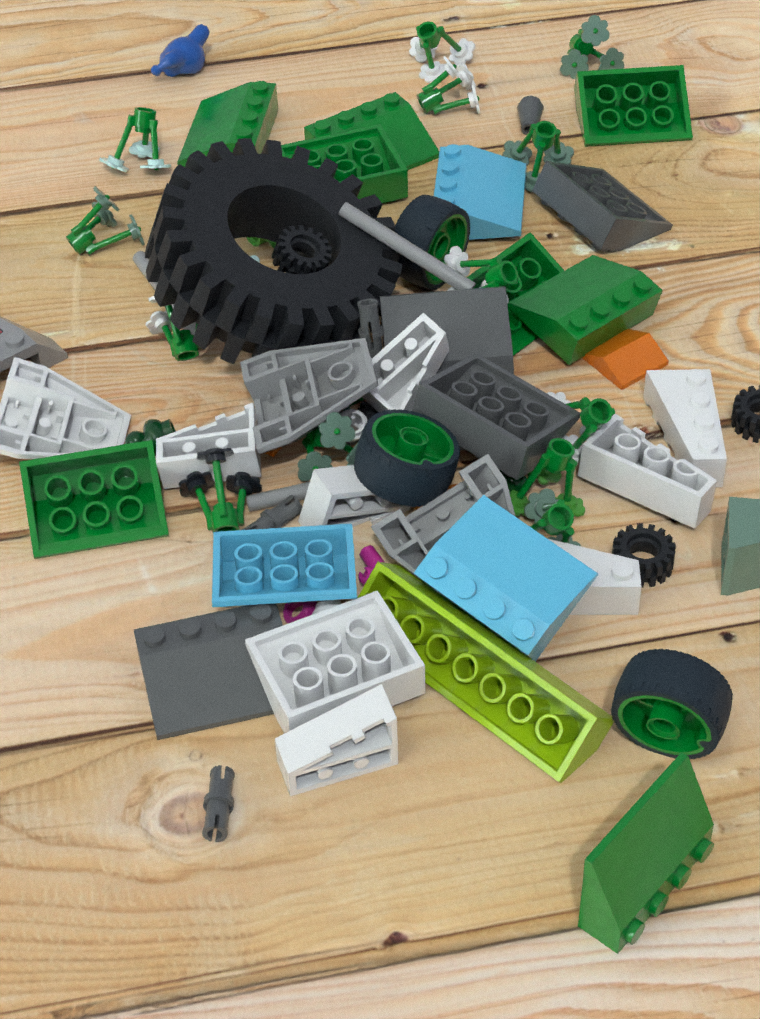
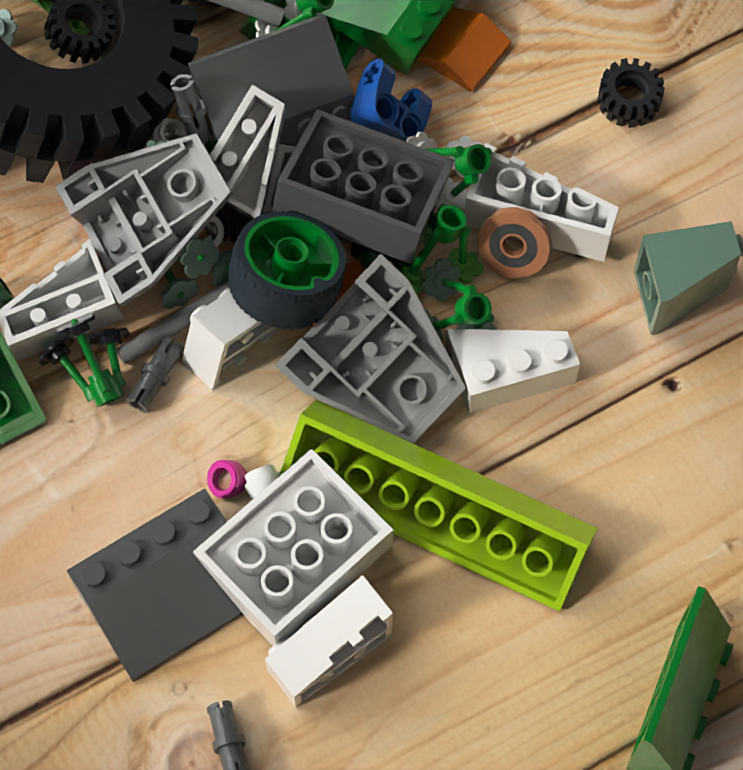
camera: 20 degrees left, 20 degrees up
(283, 565) = (200, 445): medium azure slope -> none
(370, 558) = (289, 404): dark pink arm -> none
(506, 576) = (442, 395): medium azure slope -> none
(532, 368) = (381, 111): none -> blue piece
(597, 491) = (510, 261): none -> nougat tile
(647, 541) = (563, 292): black tyre -> none
(672, 703) = (655, 504): black wheel -> none
(688, 416) = (560, 121): white wedge -> none

